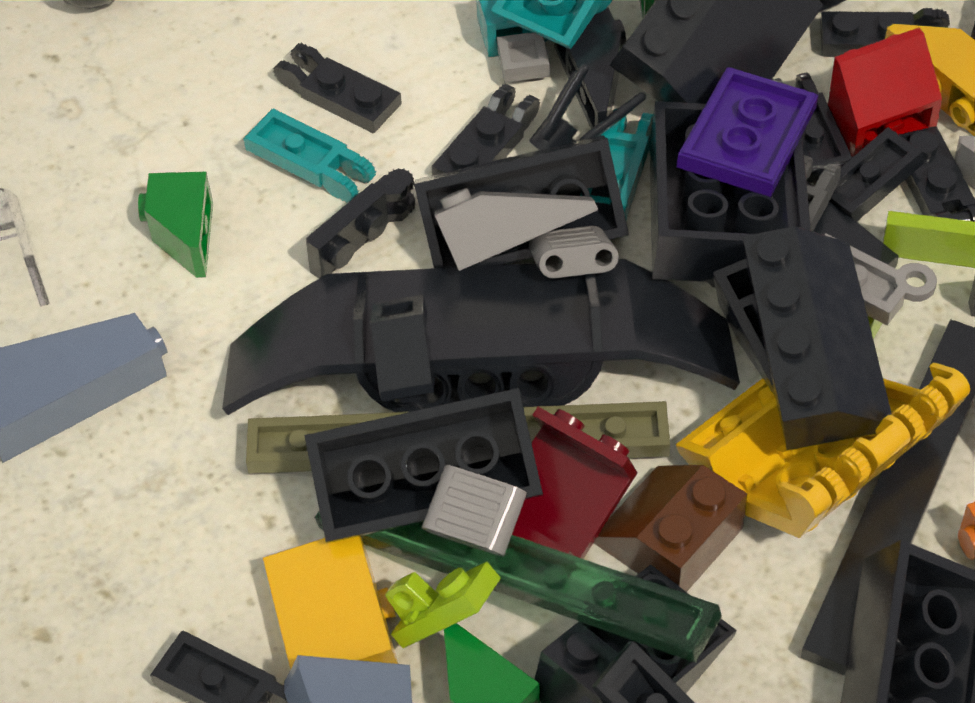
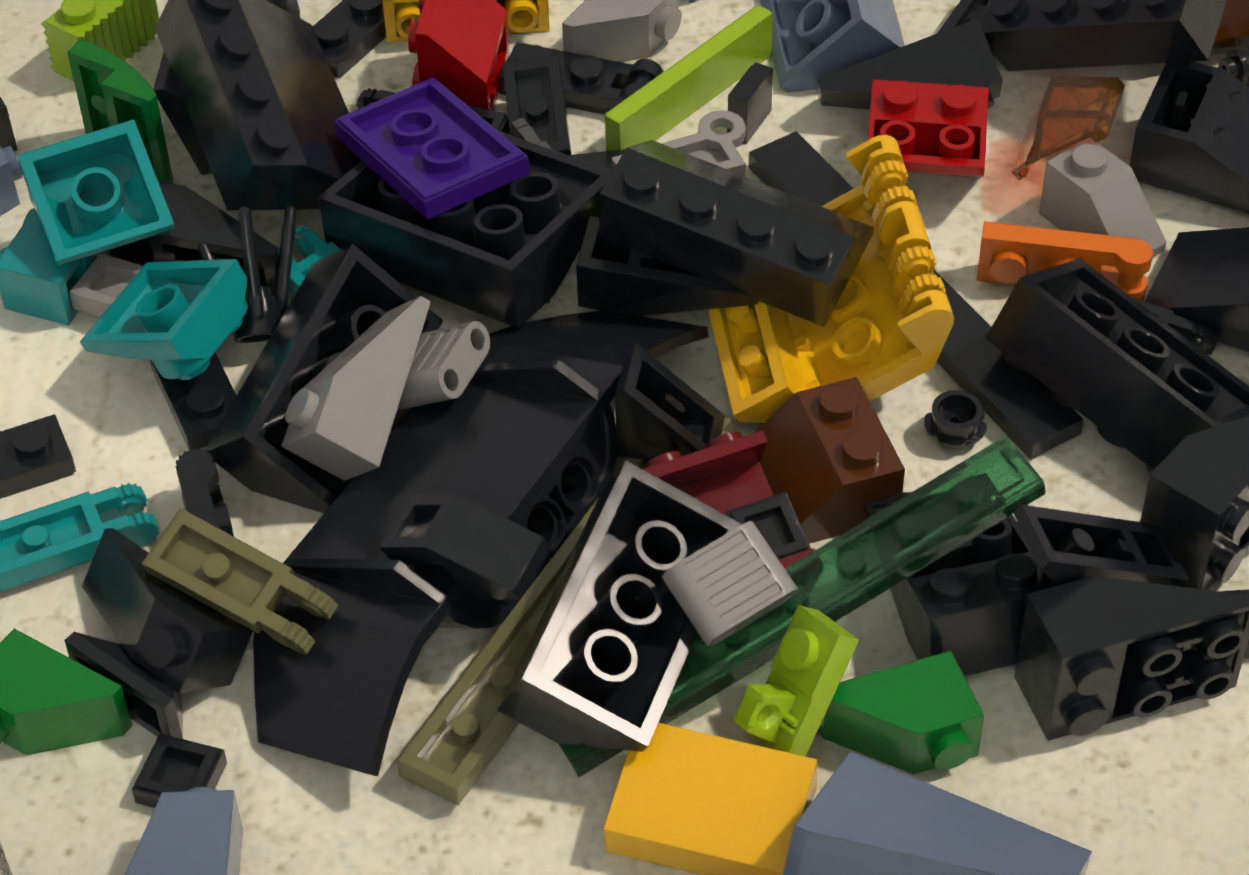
camera: 60 degrees left, 5 degrees down
(180, 320) = (177, 767): none -> black tile
(226, 259) = (147, 697): none -> black slope
(269, 250) = (160, 625): none -> black slope
(304, 251) = (234, 579): none -> olive hinge
(499, 96) = (173, 315): none -> teal slope
(575, 520) = (776, 523): none -> black tile
(621, 394) = (659, 410): none -> black slope
(791, 574) = (956, 419): none -> black plate

